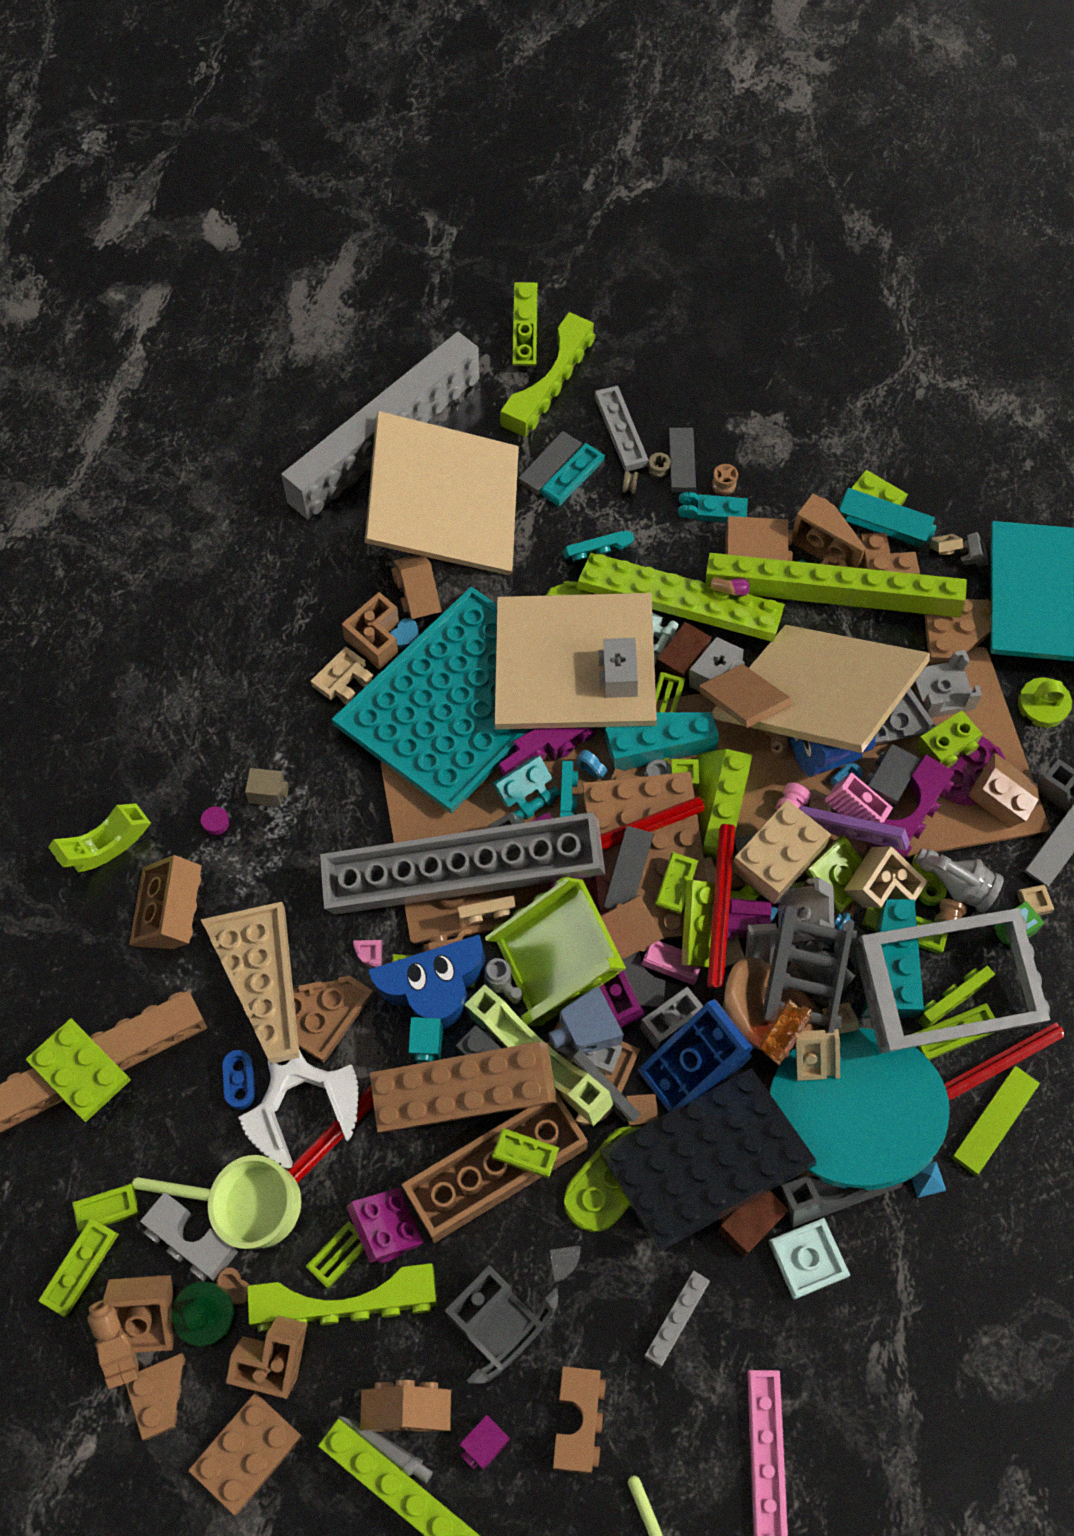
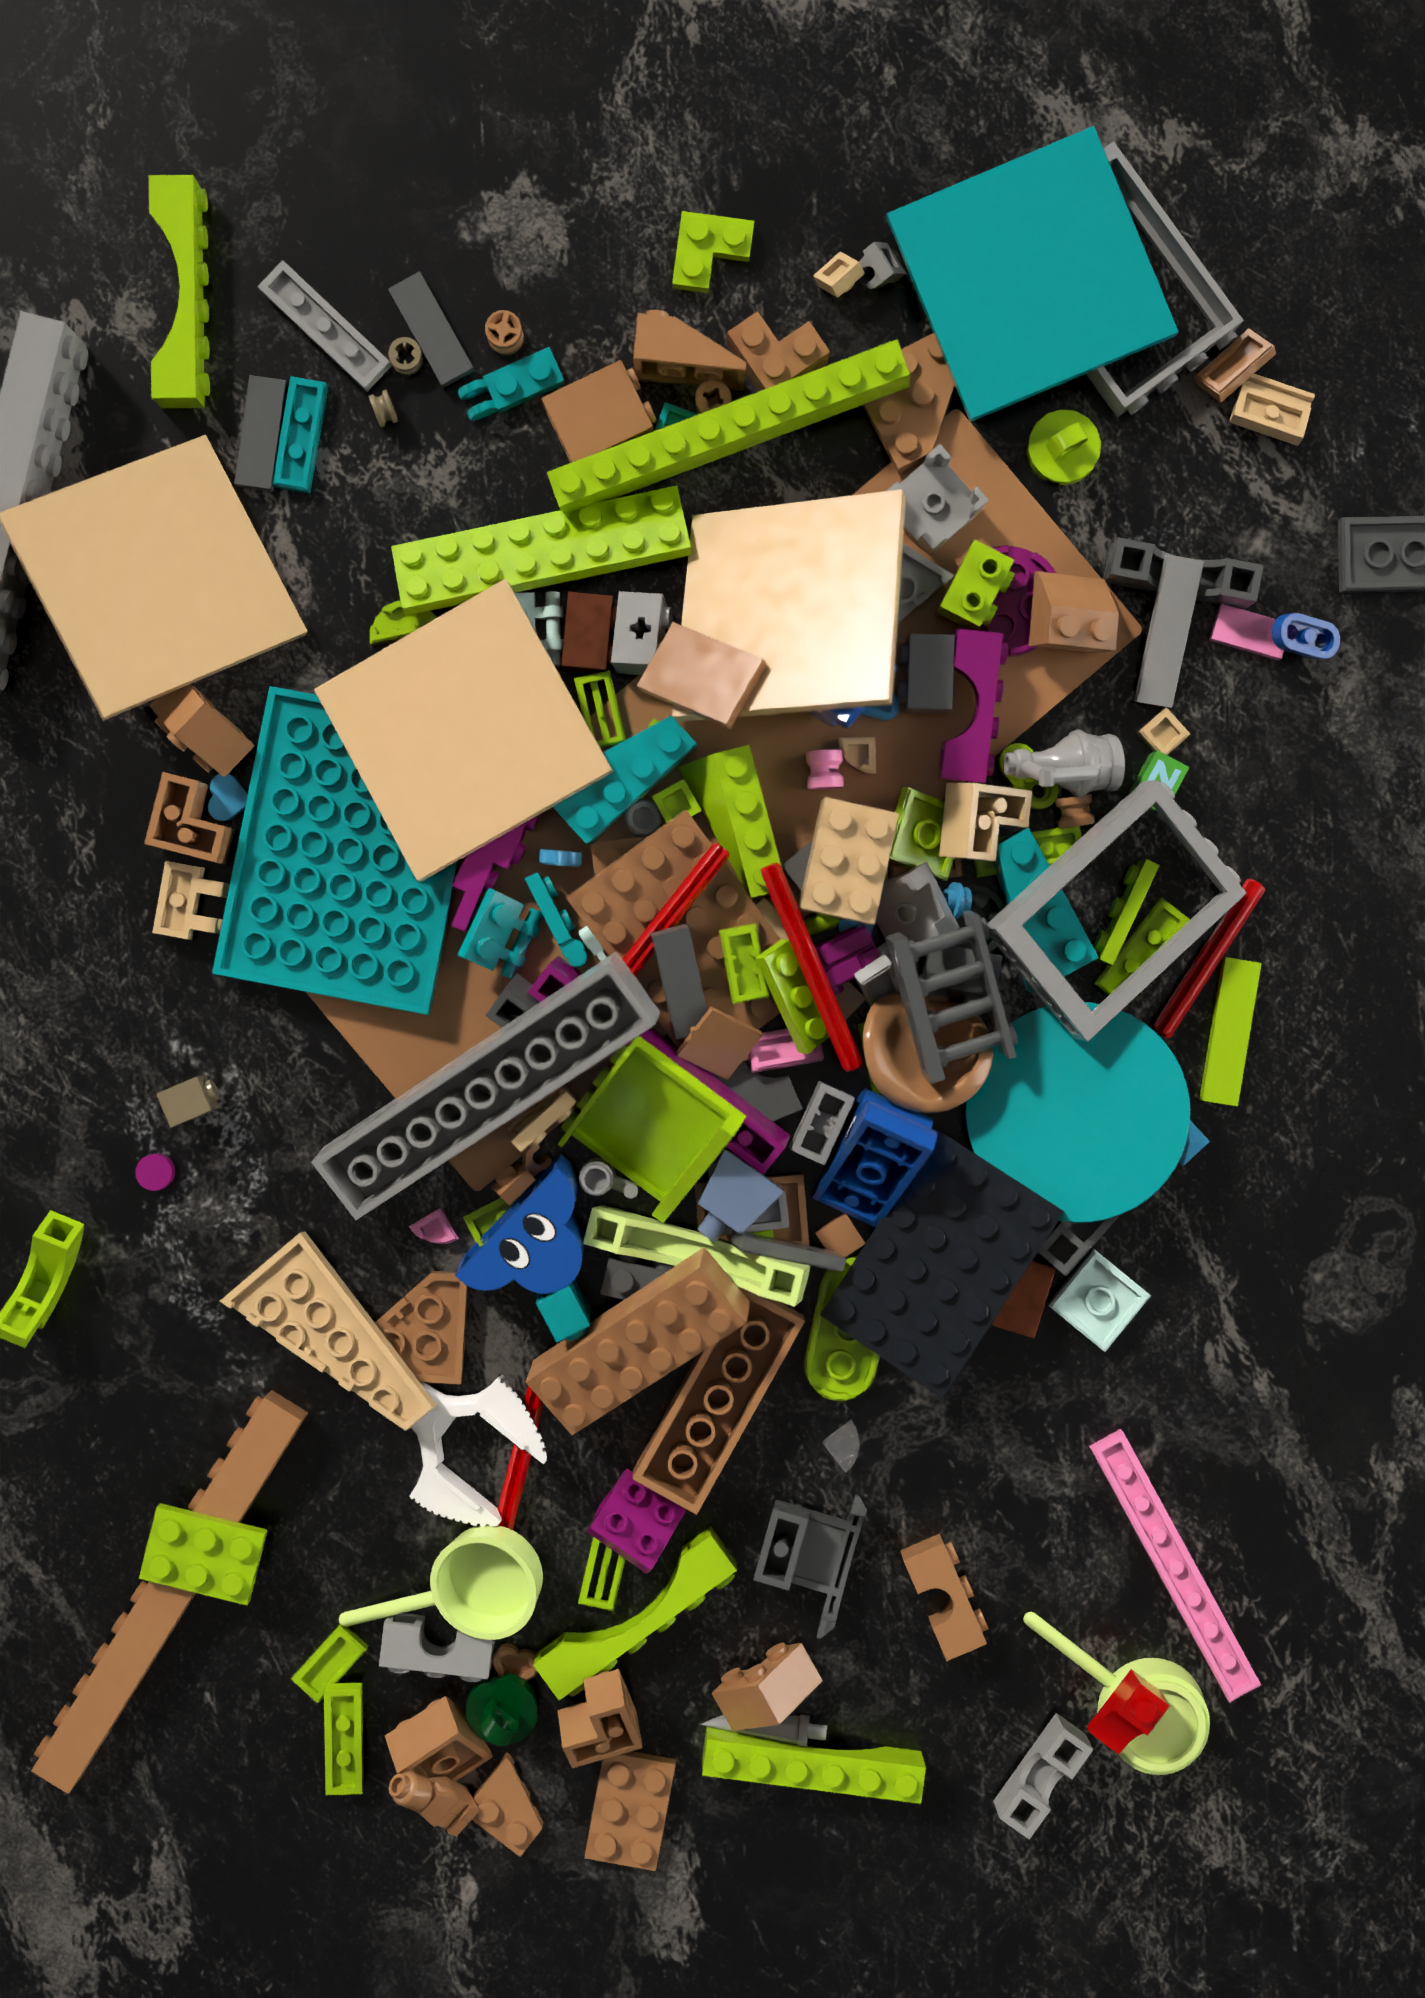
camera: 25 degrees left, 25 degrees up
(166, 904) = (168, 1307): medium nougat slope -> none
(238, 1081) = (380, 1454): blue plate -> none
(483, 1443) = (863, 1670): magenta brick -> none
(525, 324) = (99, 226): lime slope -> none
(525, 1153) = (747, 1377): lime plate -> none
(599, 545) = (397, 530): teal hinge -> none
(620, 667) = (520, 702): light grey brick -> none
(676, 1319) = (992, 1438): light grey piece -> none
(733, 587) = (601, 508): arm -> none
(782, 1033) = (963, 1073): clear orange hinge -> none
(817, 1055) = (1006, 1087): tan plate -> none
(849, 1020) = (1015, 1012): tan plate -> none
(857, 800) = (906, 735): bright pink brick -> none
(859, 828) = (917, 776): medium lavender tile -> none
(886, 517) = (746, 289): teal window -> none

